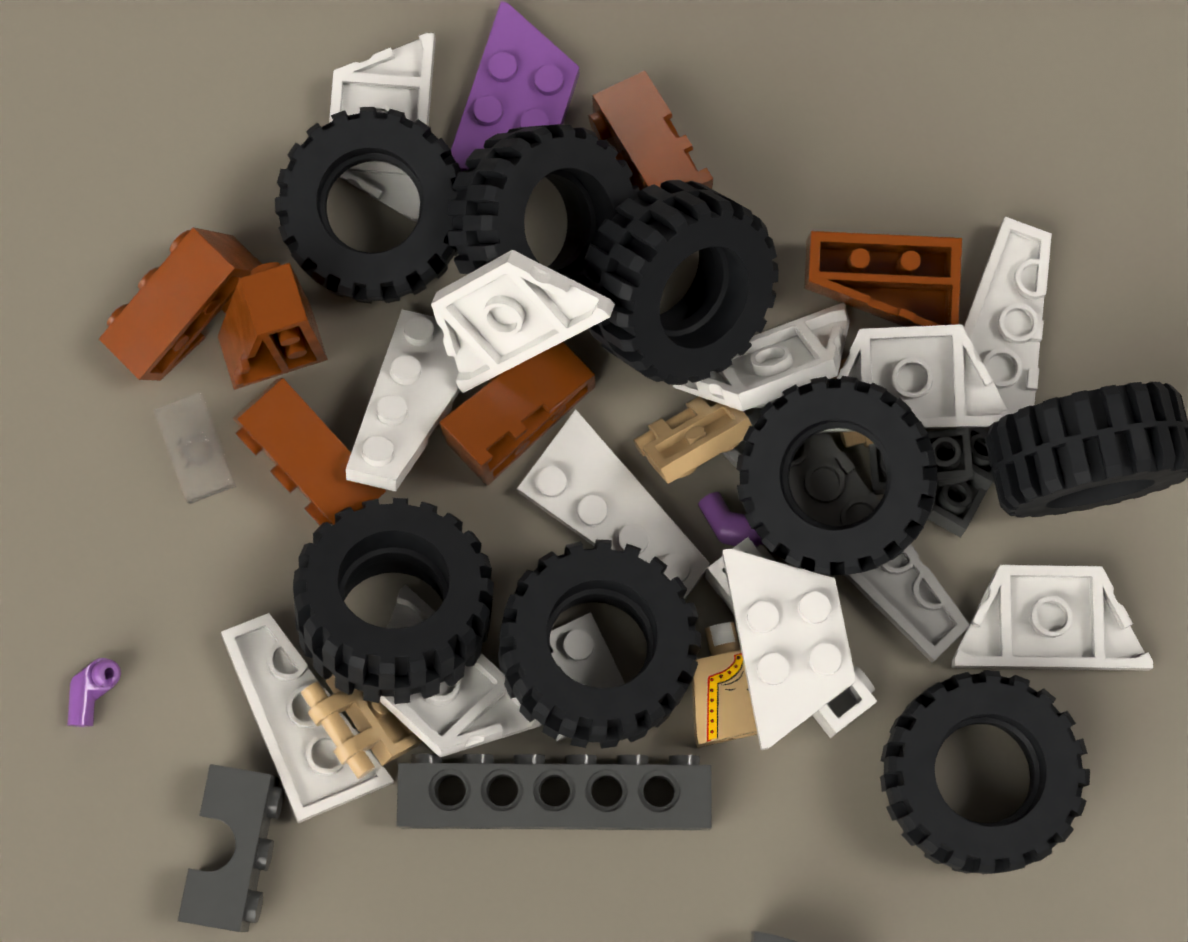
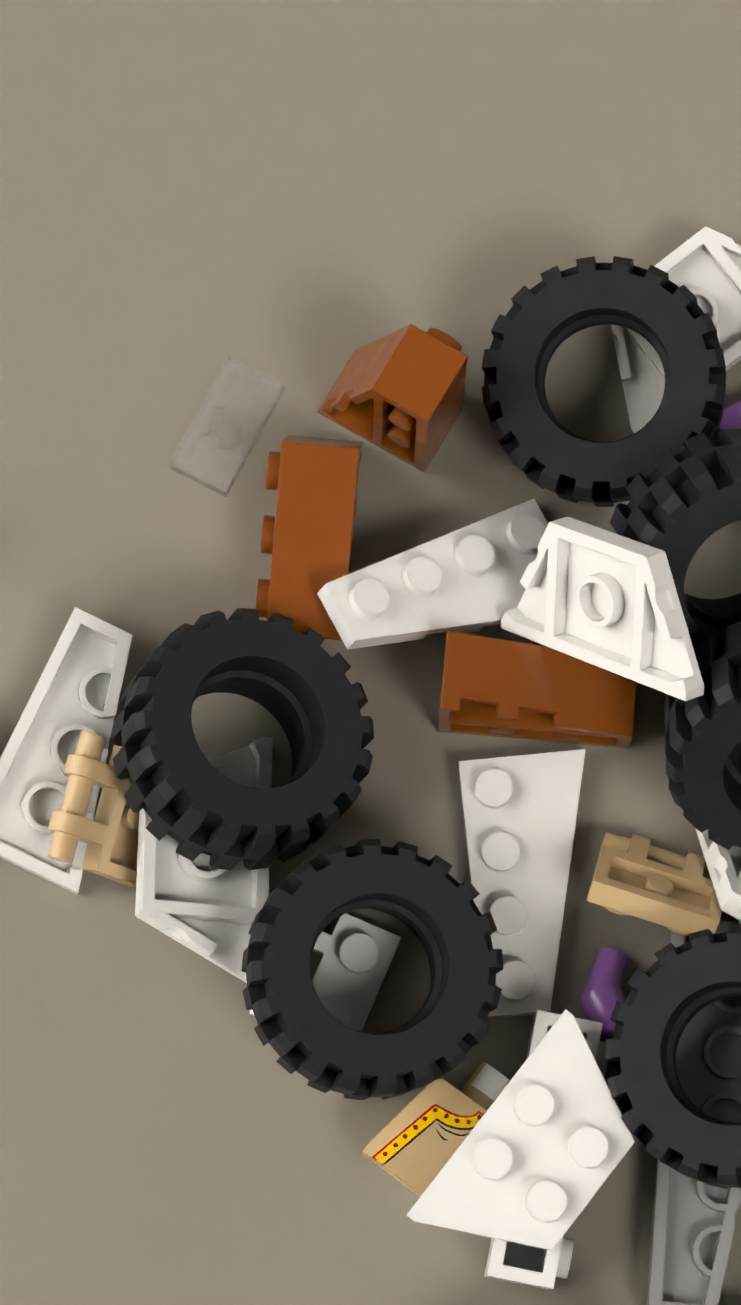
camera: 45 degrees right, 0 degrees up
(177, 302) = (351, 286): dark orange wedge -> none
(421, 809) = (75, 940): dark grey brick -> none

